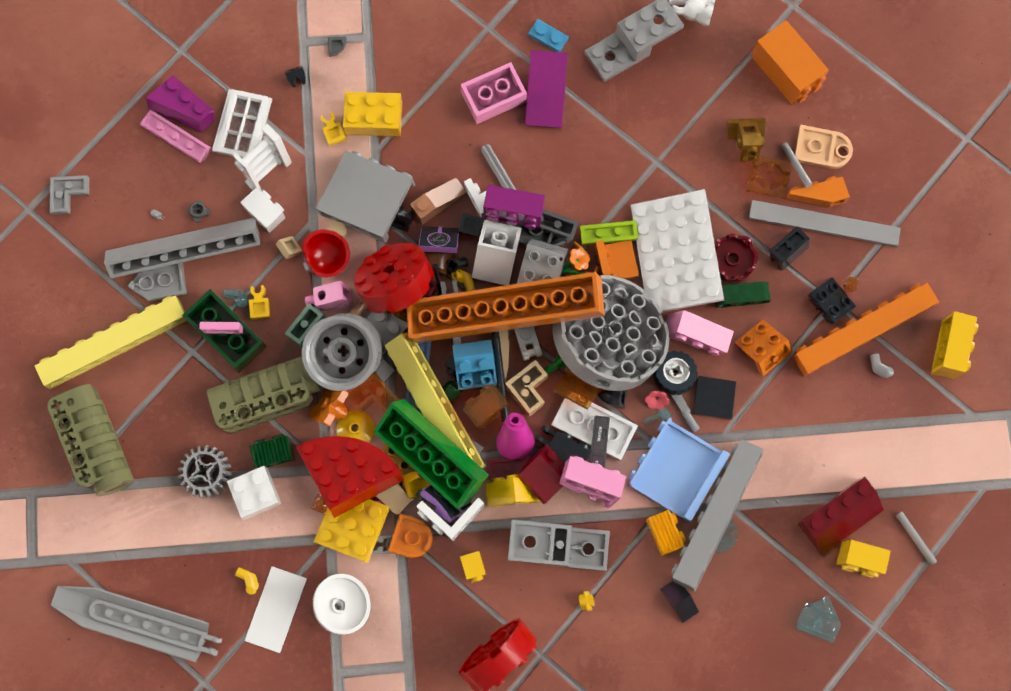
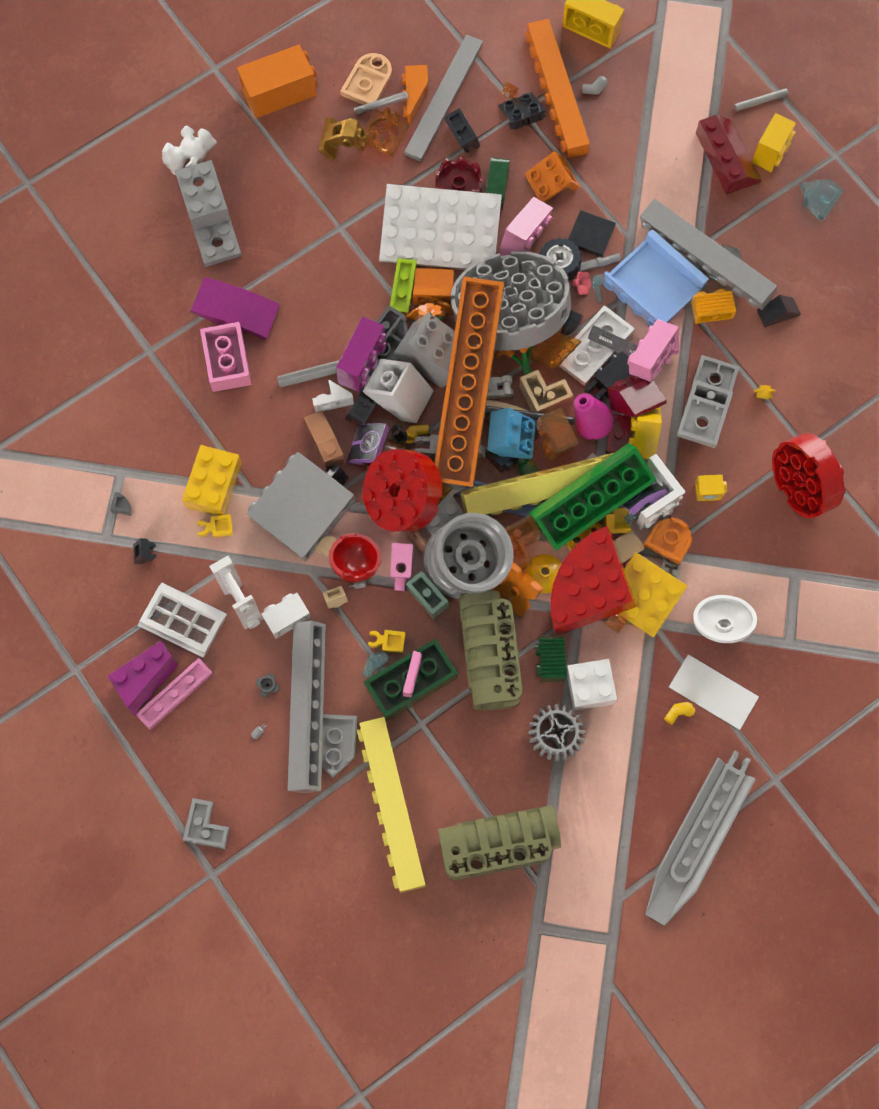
camera: 75 degrees left, 5 degrees down
(548, 36) = (177, 295): dark azure plate -> none

